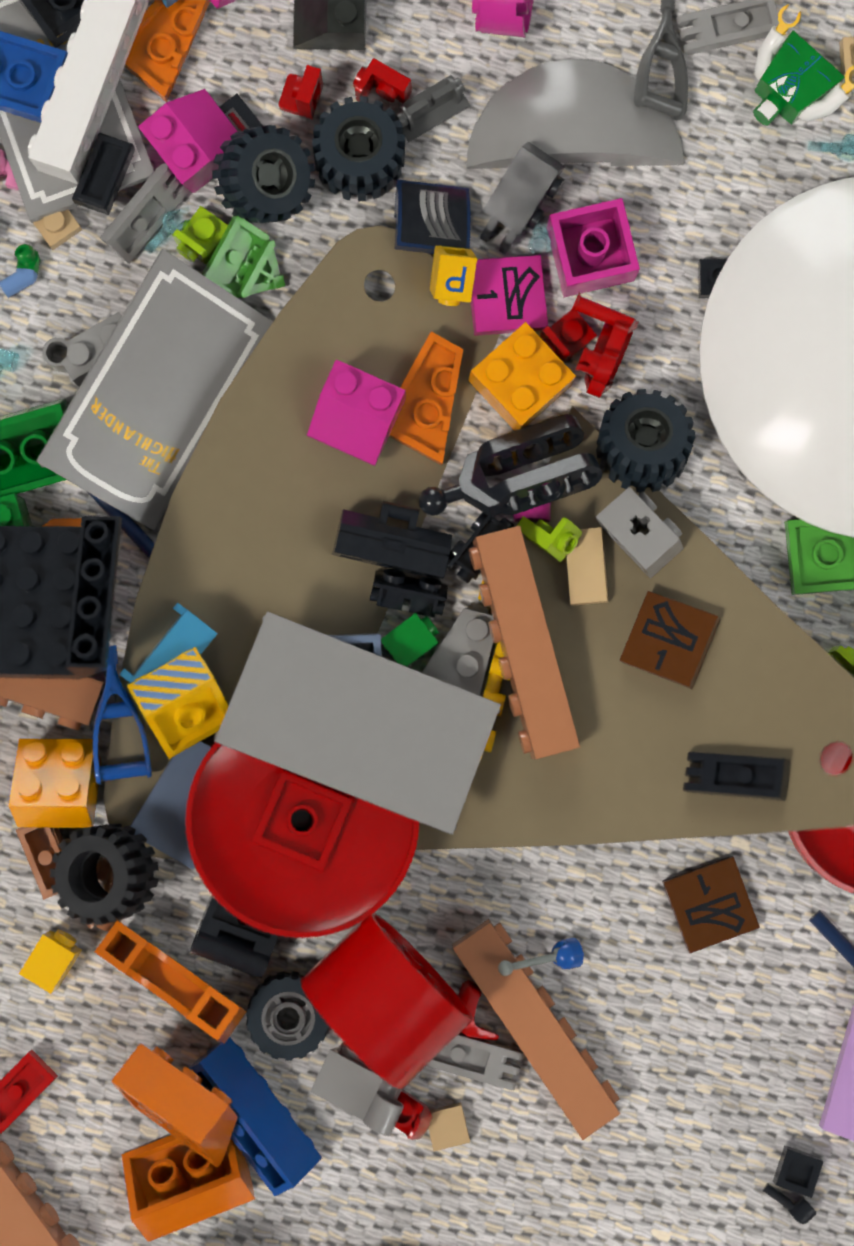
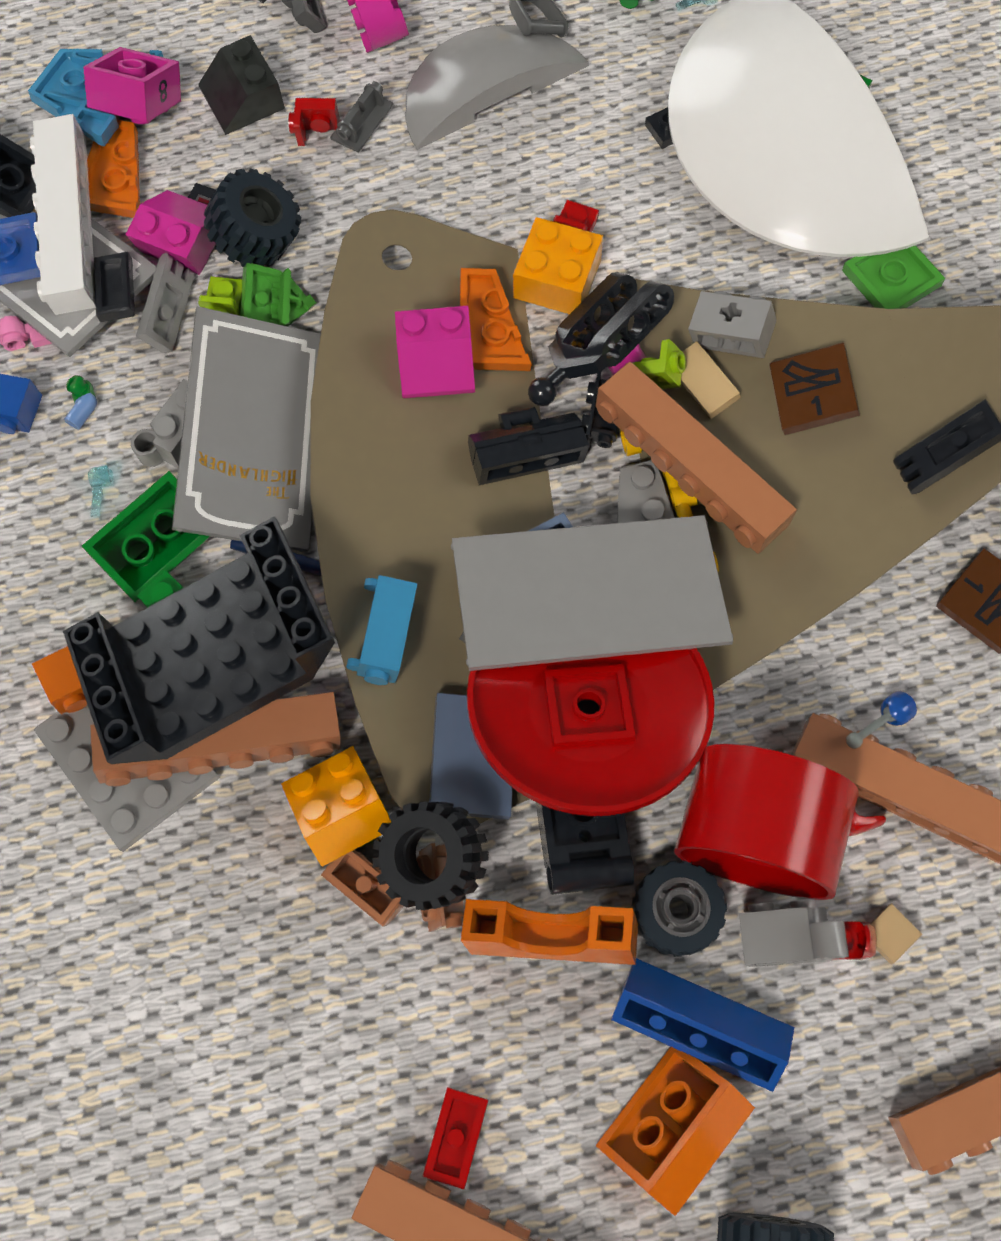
camera: 20 degrees left, 15 degrees down
(51, 960) = (421, 982): yellow brick -> none
(58, 228) = (94, 354): tan plate -> none
(118, 710) = (359, 704): blue piece -> none
(167, 229) = (190, 311): clear light blue hand -> none
(178, 1102) = (626, 1046): orange slope -> none
(180, 702) = (417, 657): yellow container -> none
(303, 93) = (252, 150): red bracket -> none
(359, 148) = (321, 168): black wheel -> none
(411, 640) = (592, 508): green brick -> none
(426, 593) = (550, 484): black hinge -> none
(431, 216) = (412, 192): slope -> none
(452, 275) = (454, 215): yellow brick -> none
(479, 1061) = (881, 851): light grey hinge -> none
(508, 295) = (503, 217): dark pink tile -> none
(521, 193) = (474, 133): hinge -> none
(538, 233) = (504, 164): clear light blue hand -> none
(593, 247) = (555, 145): dark pink brick -> none
(604, 360) = (615, 203): red piece -> none
(645, 440) = (691, 255): black wheel -> none

